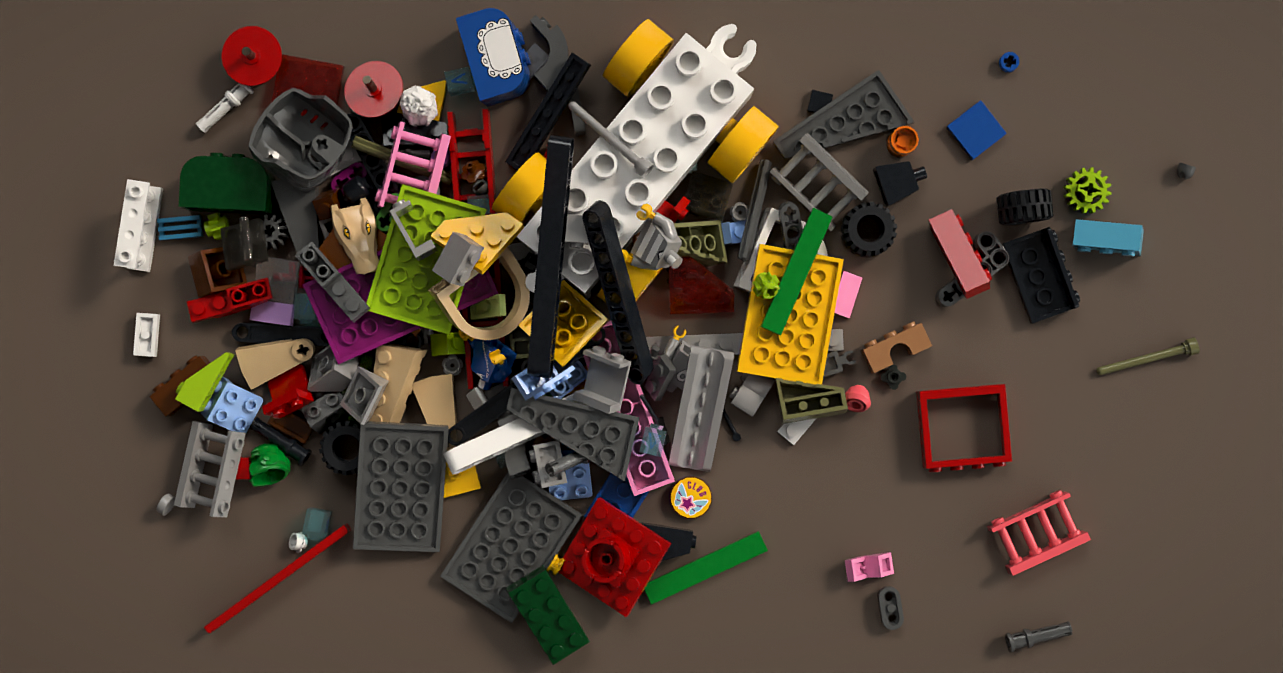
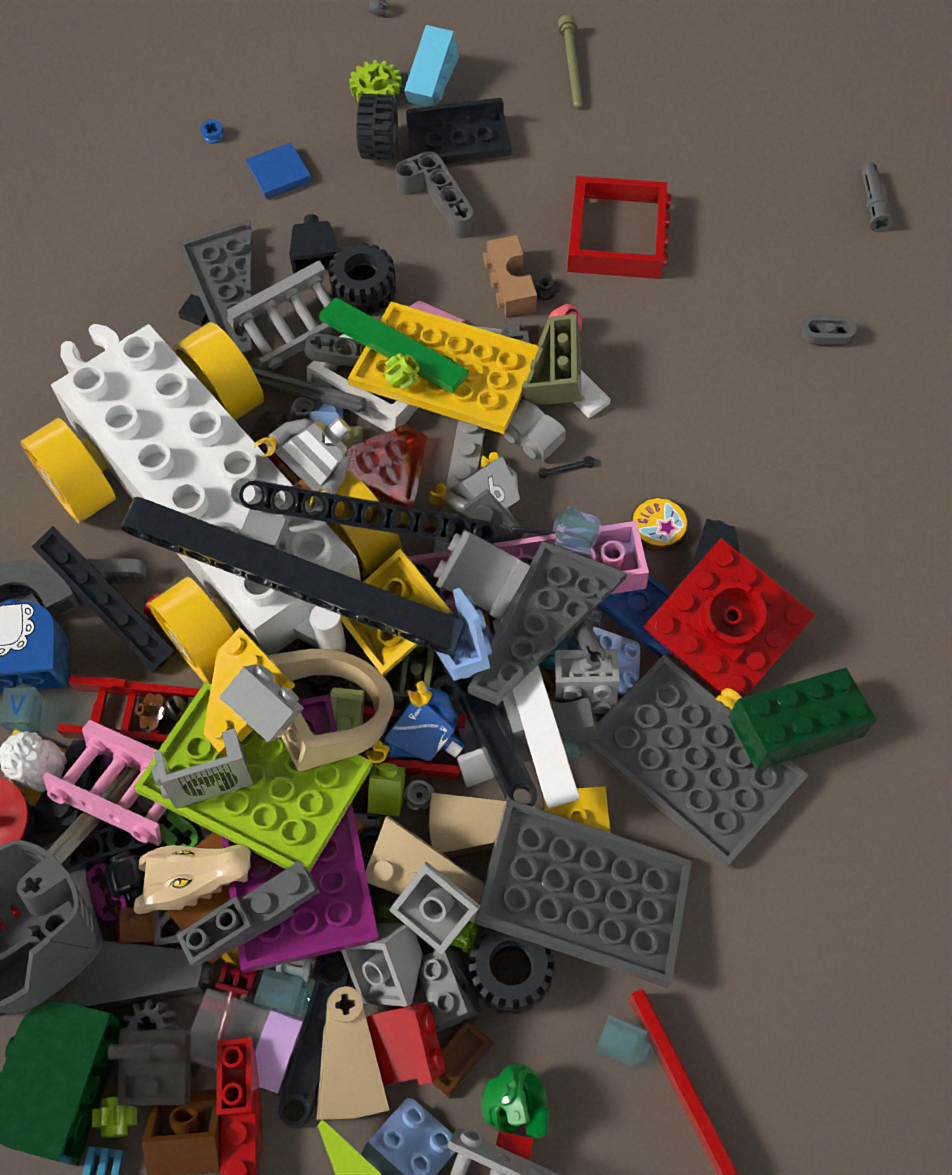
camera: 75 degrees left, 25 degrees down
(288, 446) = (492, 1065): black pin -> none
(297, 542) = (647, 1081): white plate -> none
(642, 165) = (202, 453): light grey piece -> none
(701, 408) = (540, 473): light grey plate -> none
(705, 567) = (754, 518): green tile -> none
(869, 566) = (775, 343): bright pink slope -> none
(902, 141) = (268, 231): orange wheel -> none
(959, 253) = (414, 191): brick -> none
(1036, 554) = (772, 164): coral fence -> none

